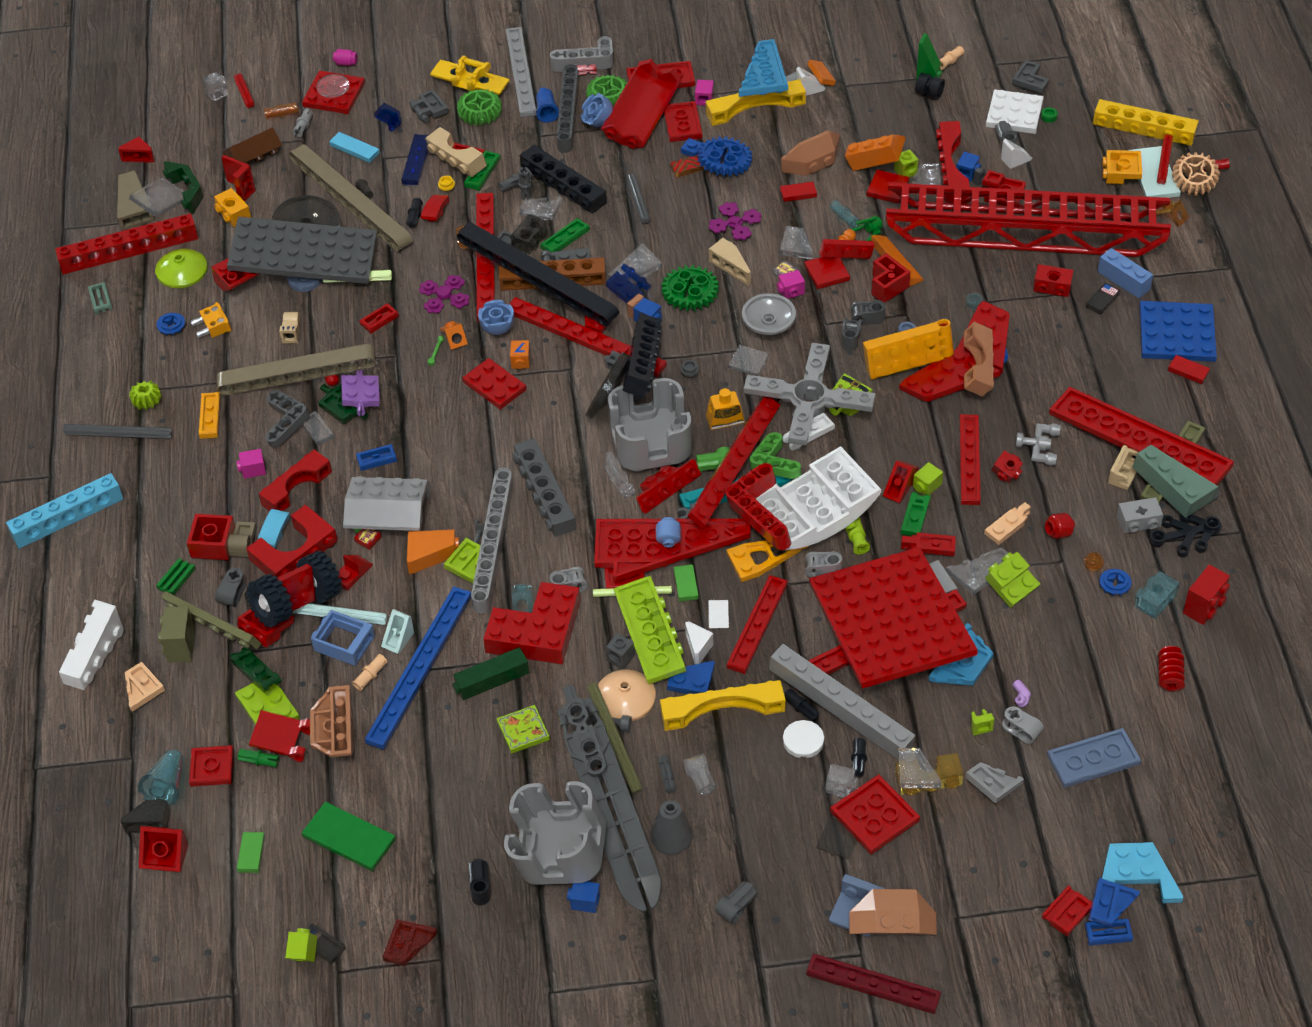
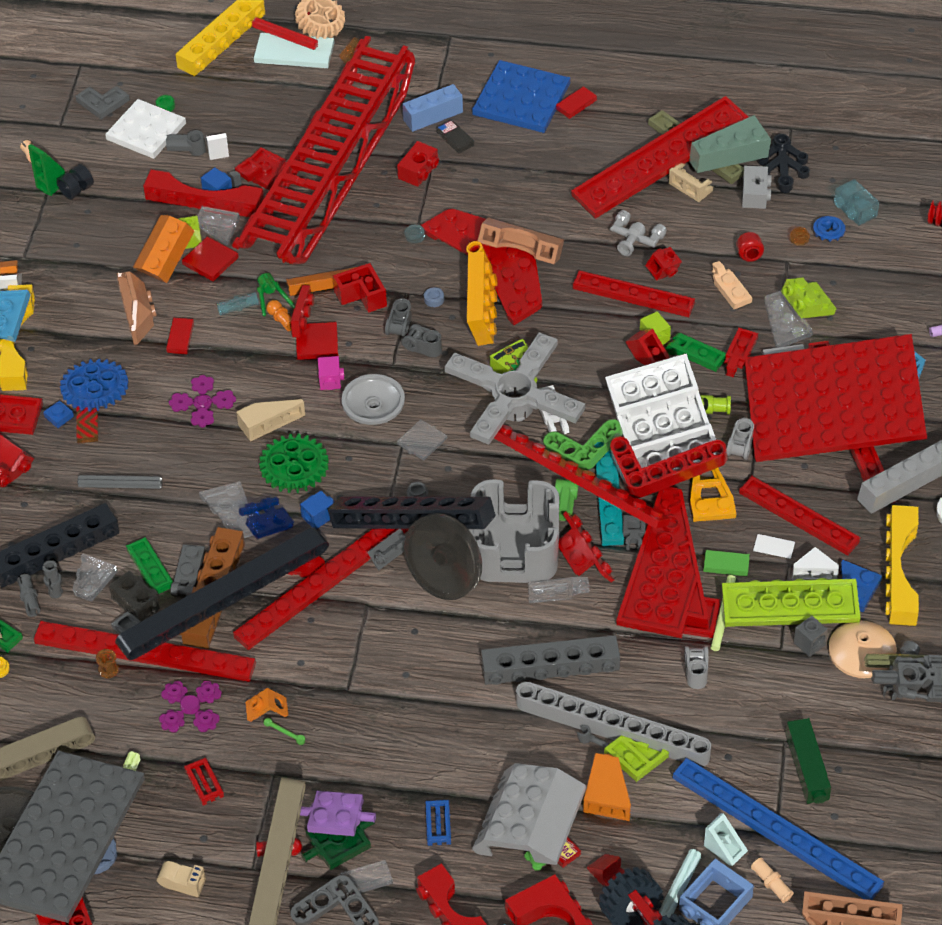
camera: 75 degrees left, 0 degrees up
(414, 212) = (34, 710): black axle -> none
(434, 207) = (39, 685): red slope -> none
(494, 383) = (364, 681): red plate -> none
(496, 317) = (271, 650): medium blue cylinder -> none
(519, 592) = (704, 709): clear light blue bracket -> none
(520, 354) = (333, 644): orange brick -> none
(523, 729) = (886, 748): lime tile -> none
(539, 634) = (761, 698): red brick -> none
(632, 303) = (300, 517): nougat tile -> none
(668, 532) = (667, 553): medium blue head -> none
(724, 410) = (501, 464): light orange torso -> none
(783, 268) = (301, 376): tile -> none
(796, 243) = (261, 357): clear wing -> none
(800, 704) = (920, 500): black axle -> none
(1121, 166) = (279, 67): light orange plate -> none
(1207, 595) = (874, 164): red brick -> none

